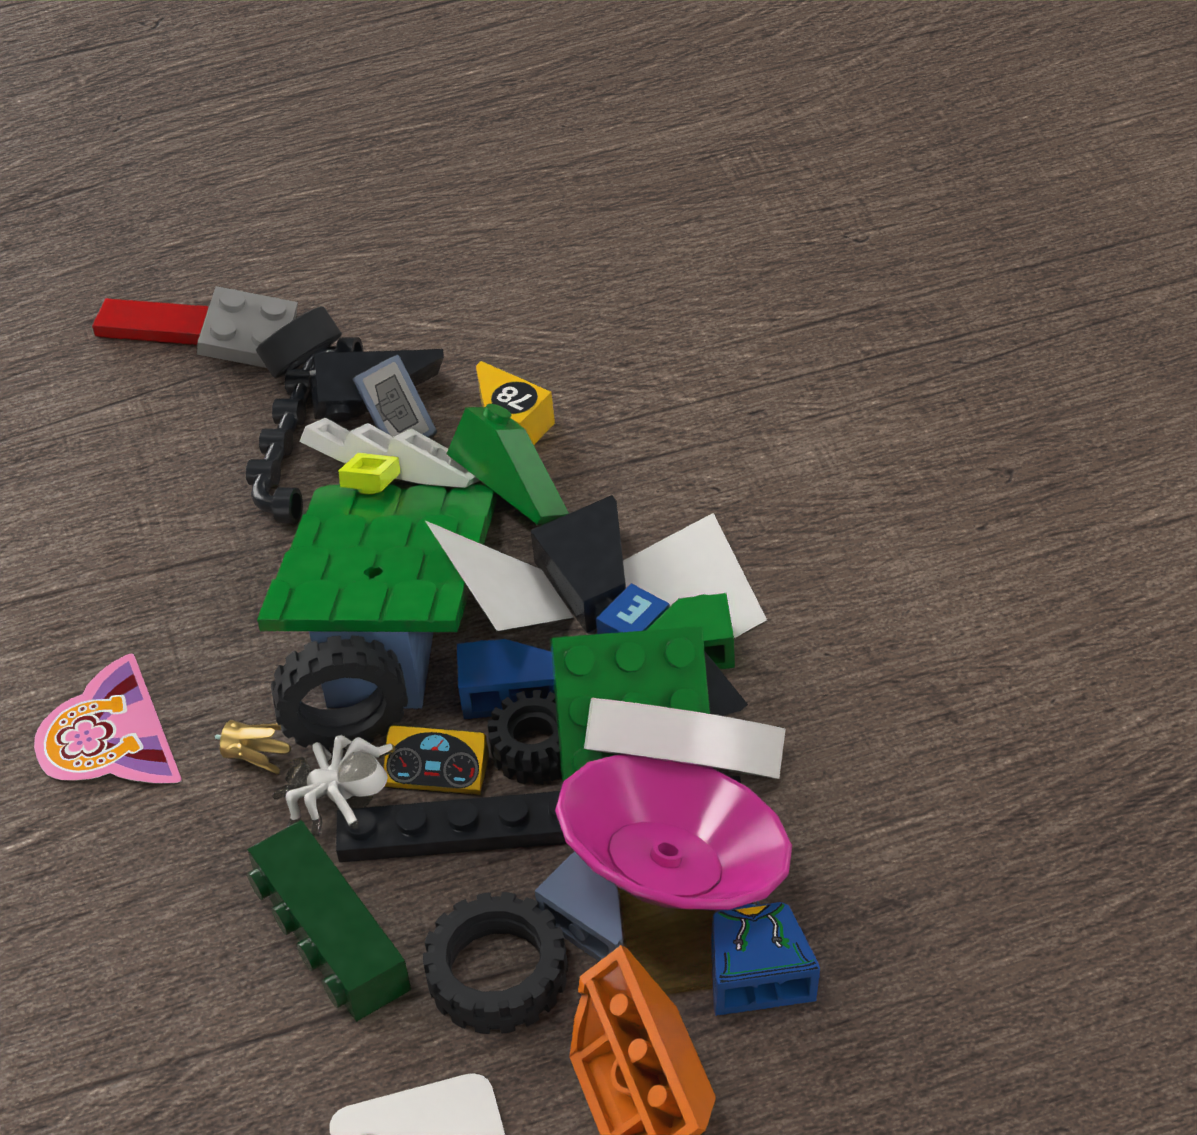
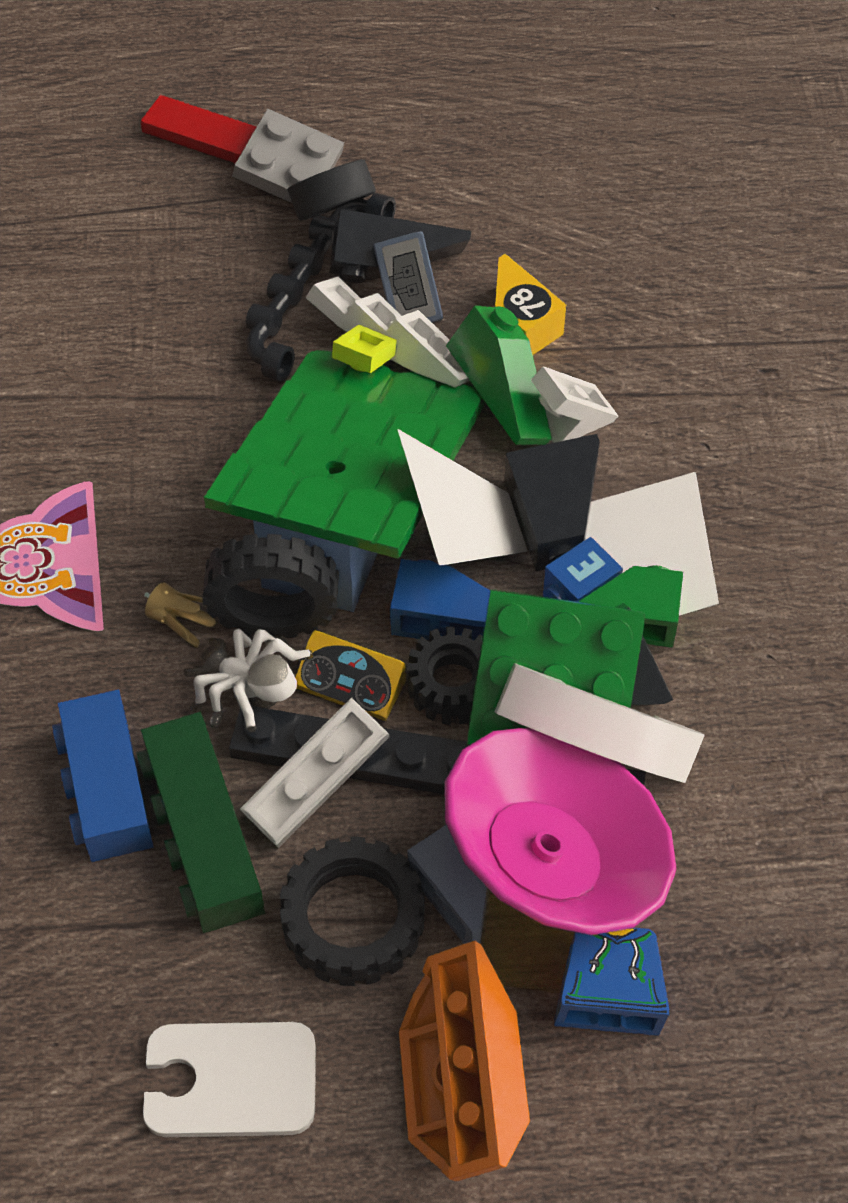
camera: 10 degrees right, 10 degrees up
(220, 903) = (102, 776): none -> blue brick
(425, 850) = (315, 772): none -> white tile
(579, 477) = (571, 405): none -> white slope

